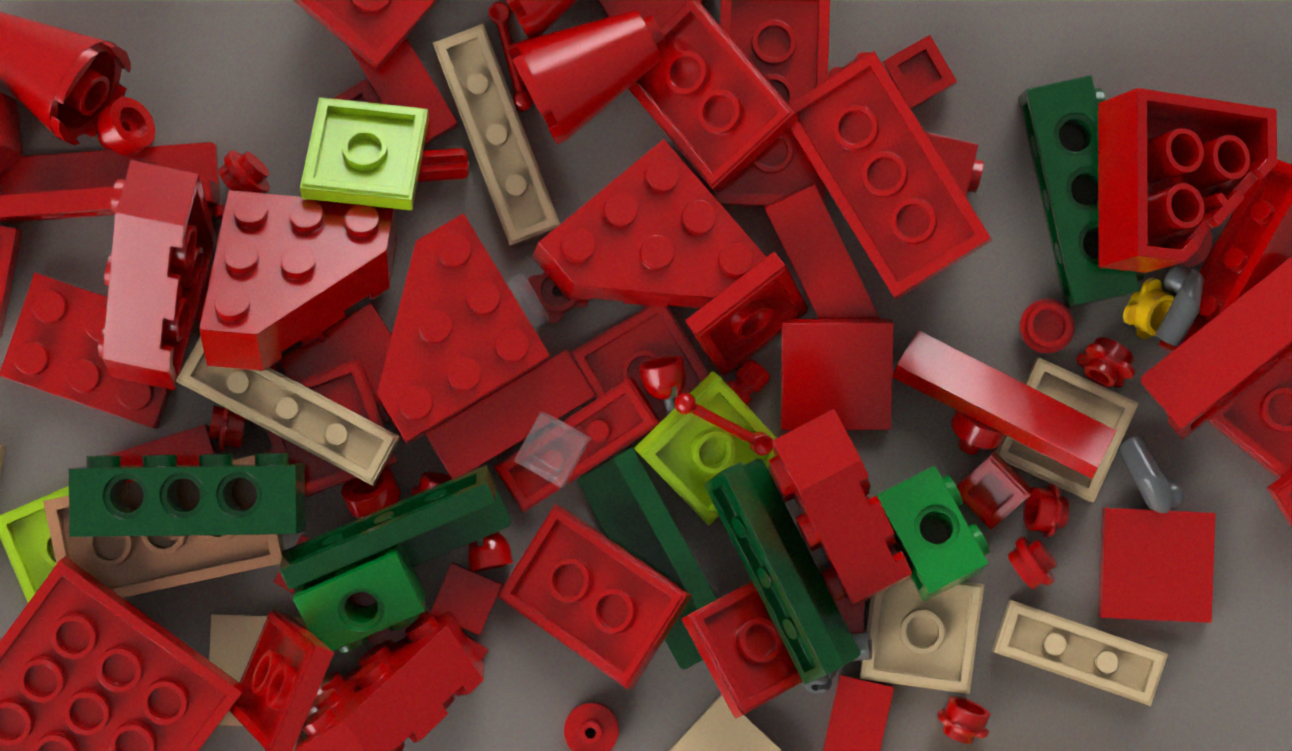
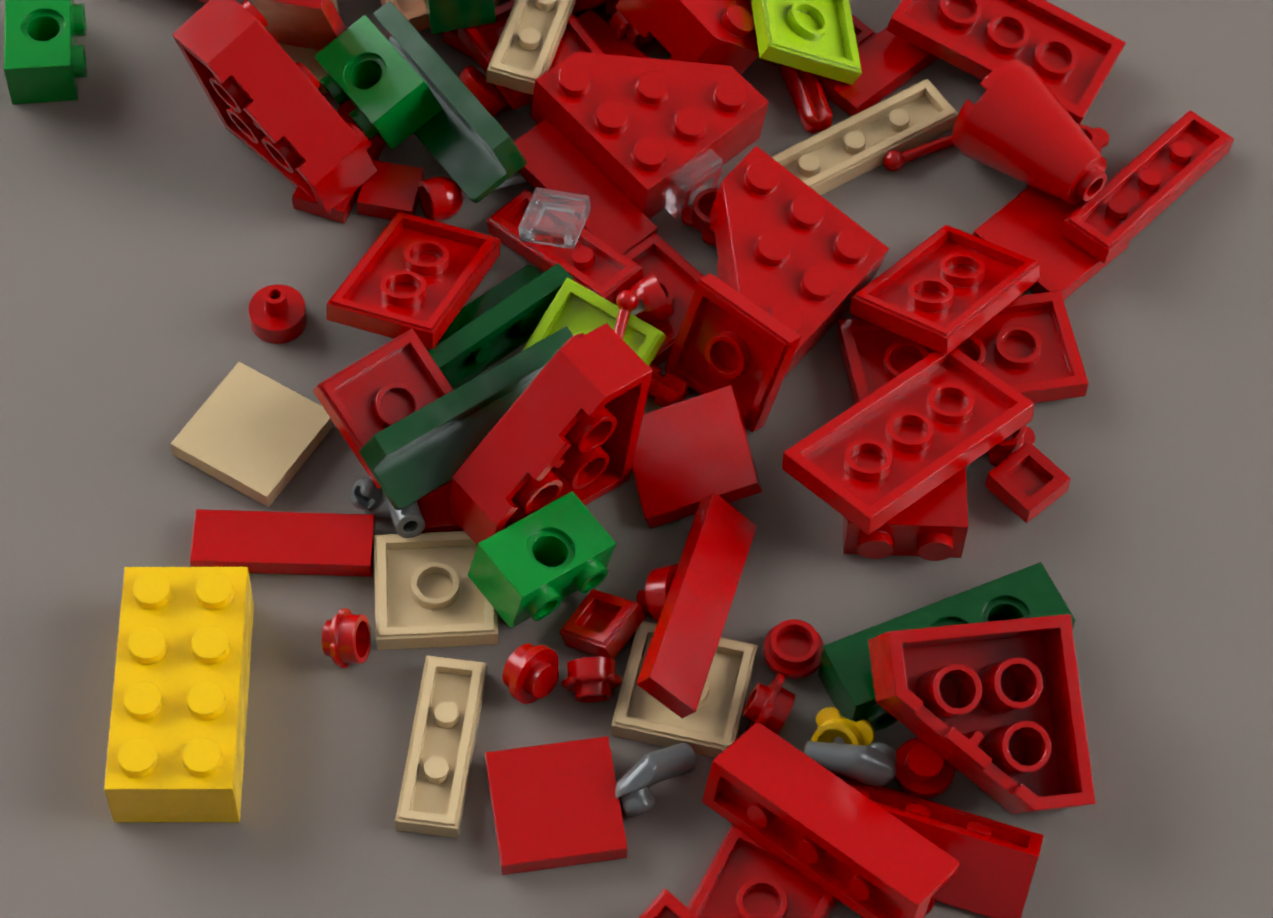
camera: 70 degrees right, 30 degrees down
(586, 67) = (934, 175): red cone -> none
(820, 256) = (803, 411): red tile -> none

